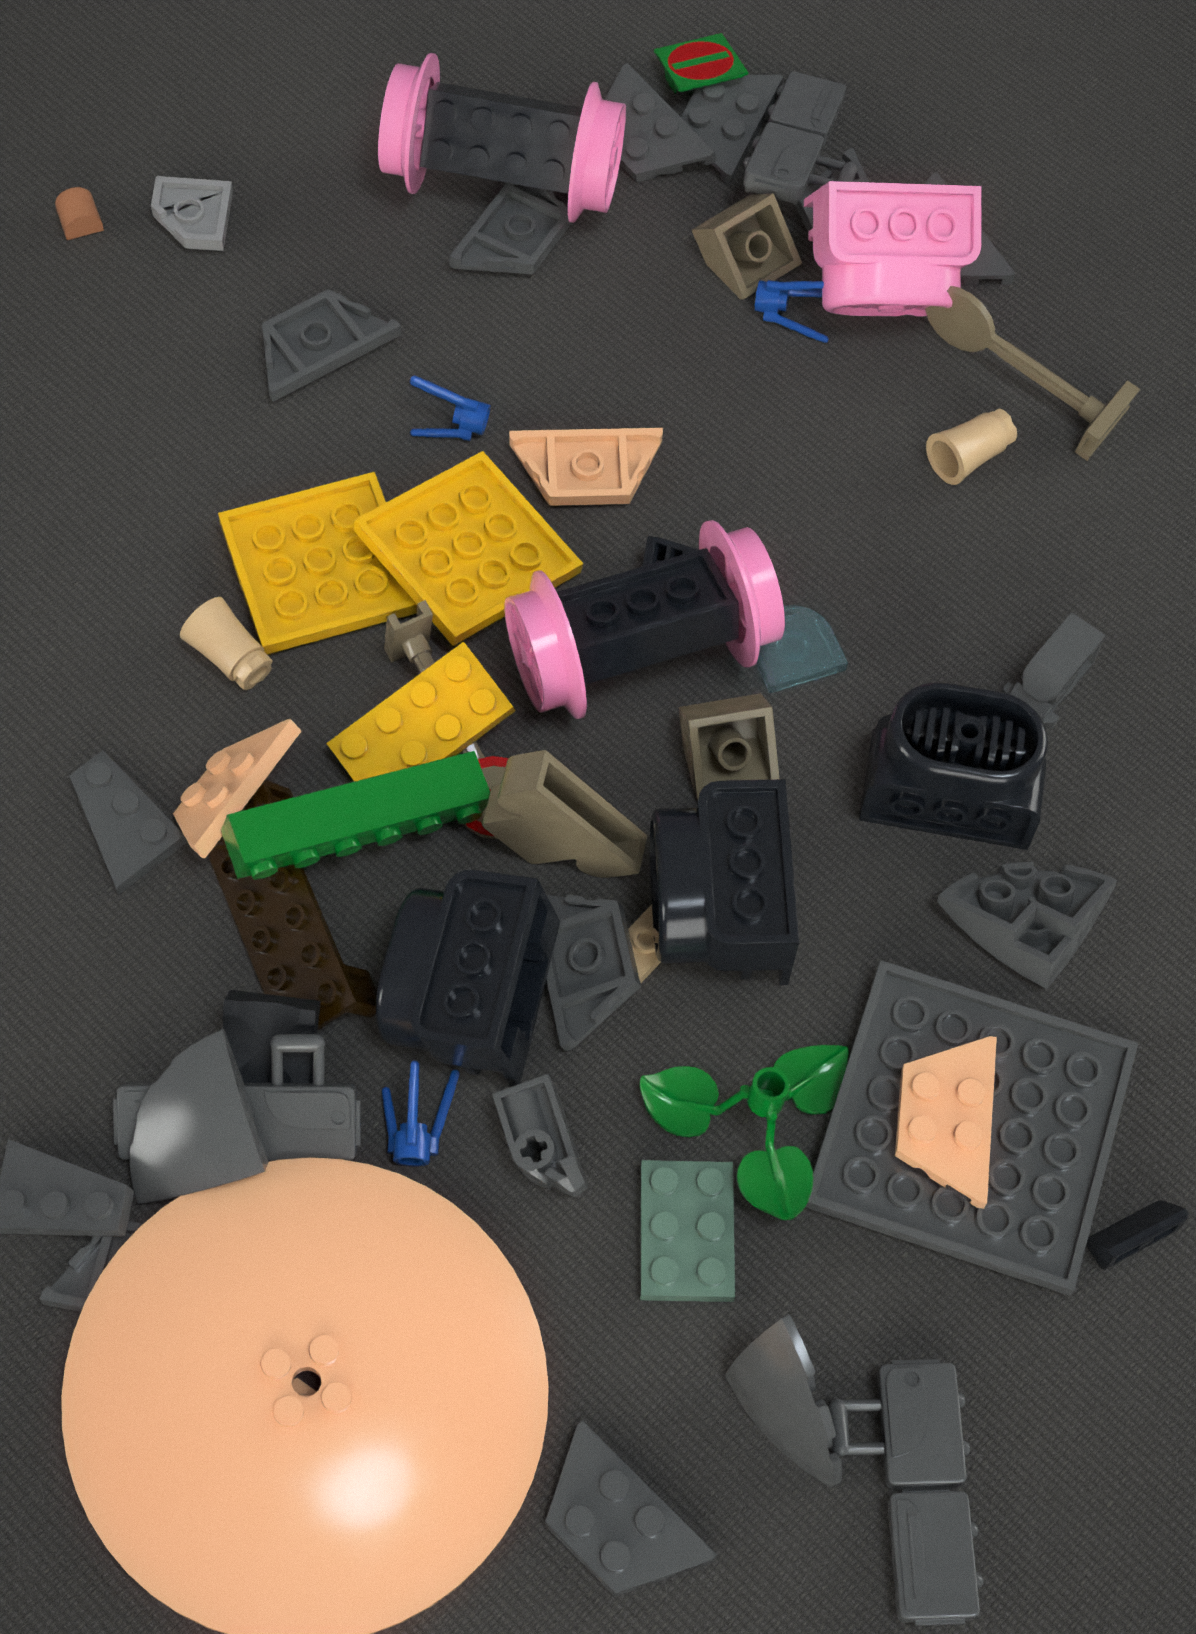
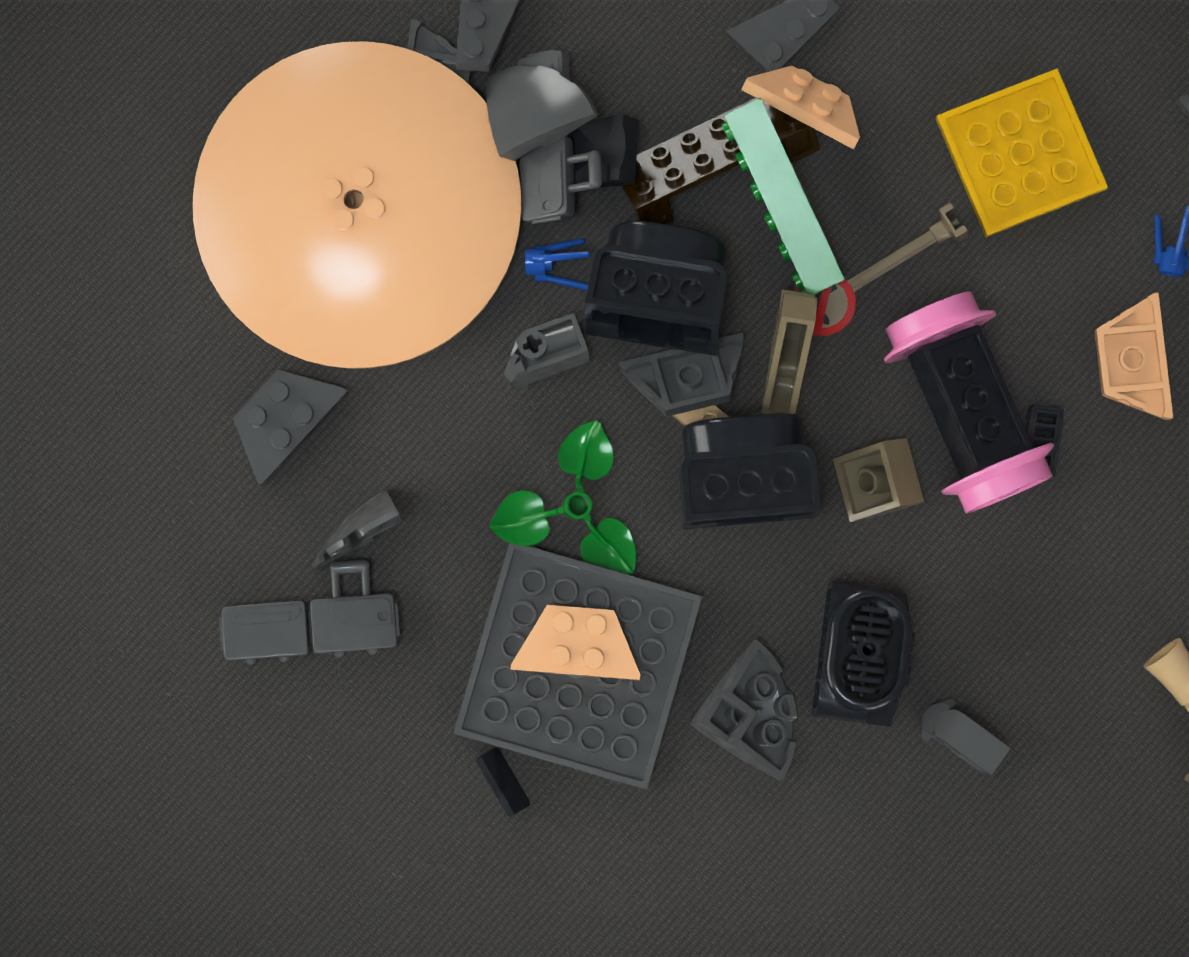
camera: 85 degrees right, 20 degrees up
(226, 643) = (937, 88): tan plant -> none
(424, 719) = (873, 241): yellow plate -> none
(465, 545) = (1040, 266): yellow plate -> none
(687, 1231) = (487, 459): sand green plate -> none
(804, 652) = (976, 536): clear light blue tile -> none

